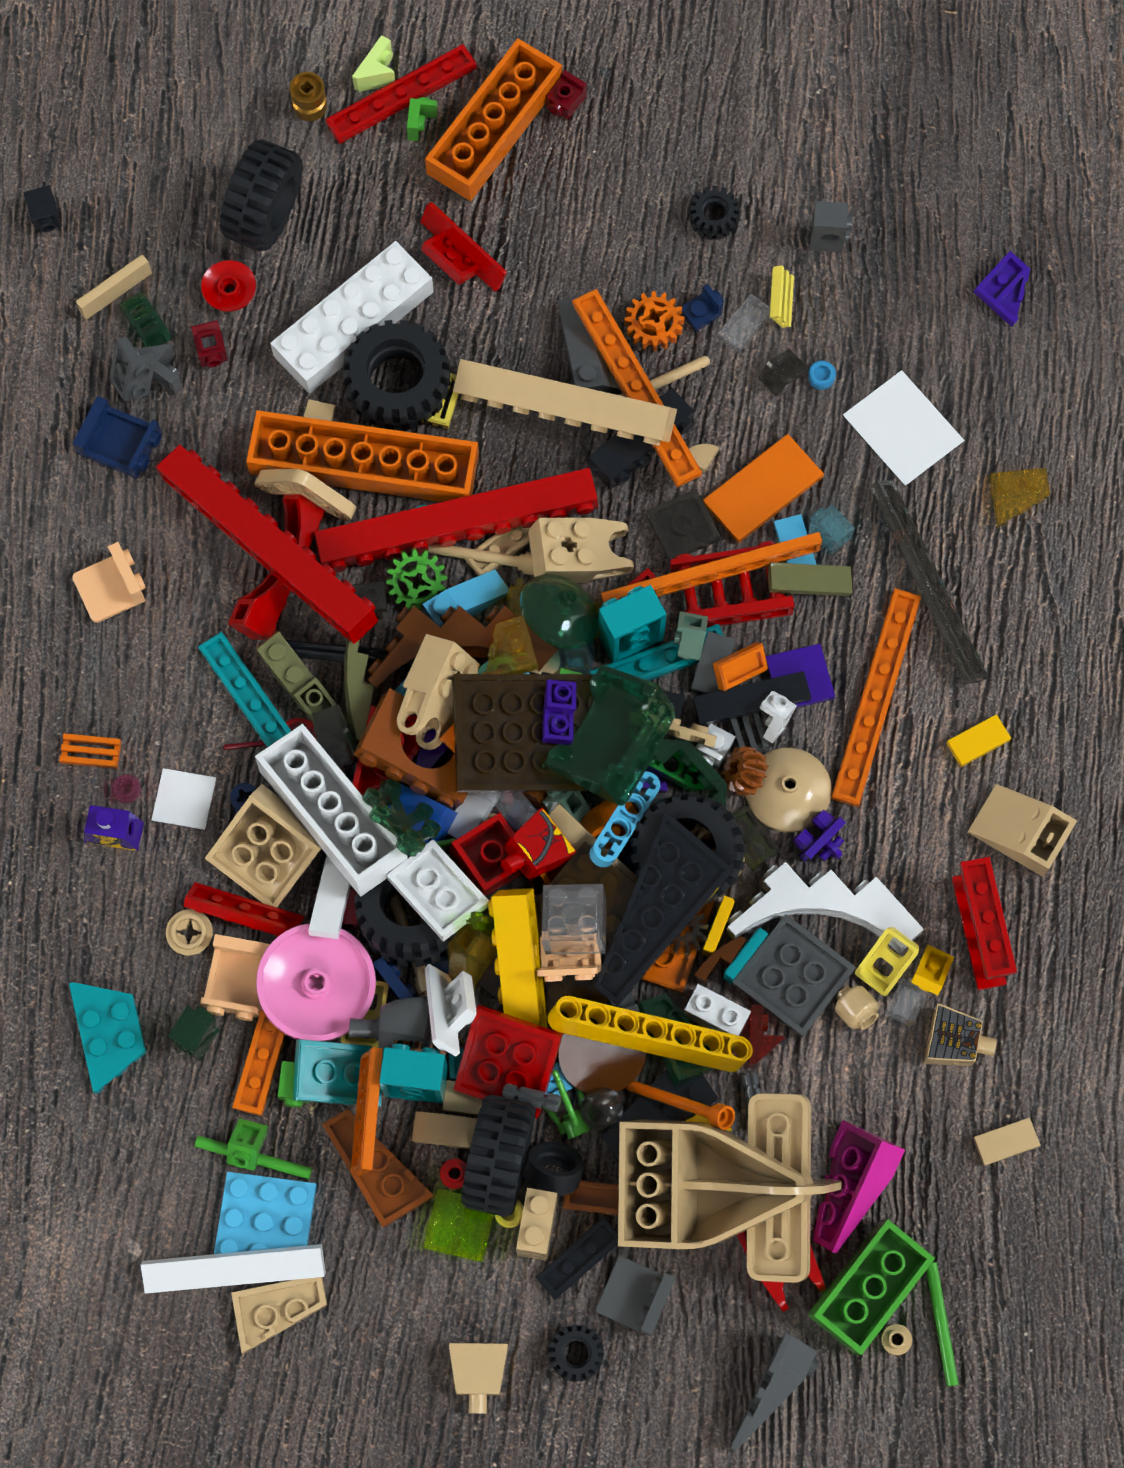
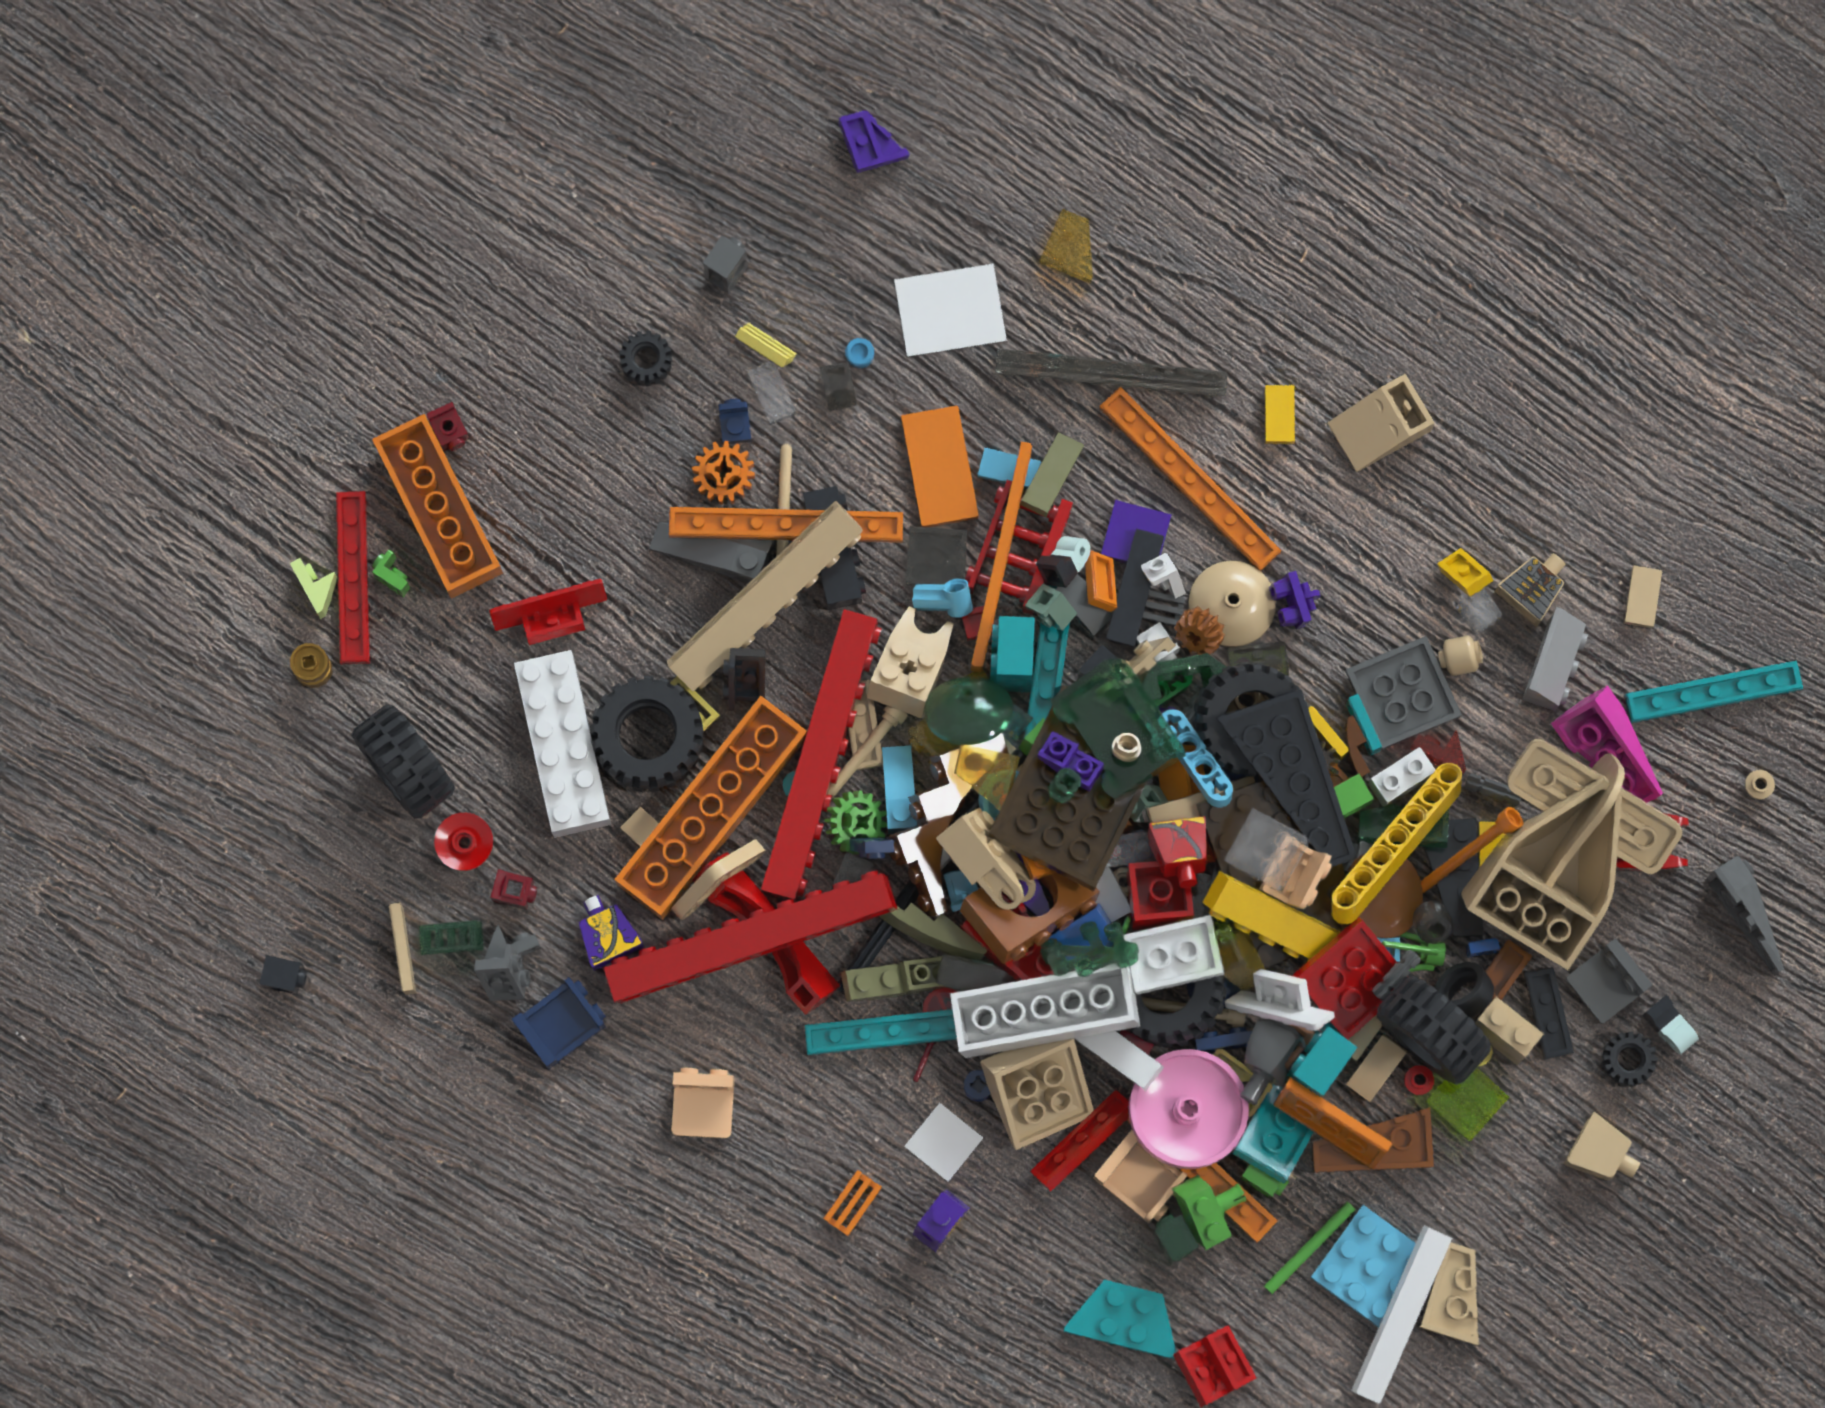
camera: 60 degrees left, 5 degrees up
(104, 1129) = (1214, 1366): none -> red slope
(122, 781) = (911, 1179): clear pink plate -> none
(180, 923) = (1089, 1197): tan gear -> none
(212, 435) = (607, 933): none -> torso
(234, 1045) = (1206, 1211): none -> bright green brick
(246, 1144) = (1296, 1247): bright green bracket -> none
(396, 595) = (872, 847): none -> dark blue plate
(488, 423) = (746, 675): none -> black bracket
(541, 710) = (1069, 779): none -> clear green bush
(603, 748) = (1127, 741): none -> tan plate
(604, 1166) = (1482, 947): none -> blue tile
(628, 1375) = (1671, 1025): none -> leg
(654, 551) = (950, 597): none -> medium azure piece
(671, 975) = (1353, 795): none -> bright green brick
(704, 455) = (878, 501): tan tile -> none
(738, 626) = (1064, 561): none -> leg
(787, 894) = (1378, 593): white arch -> none
(833, 528) = (1013, 428): clear light blue brick -> none
(871, 1286) = (1706, 780): bright green brick -> none
(874, 978) = (1445, 596): light yellow piece -> none
(900, 1091) = (1555, 660): none -> light grey slope
(942, 1325) = (1766, 740): bright green bar -> none
(958, 1253) = (1713, 692): none -> teal tile
(983, 923) = (1452, 506): red fence -> none

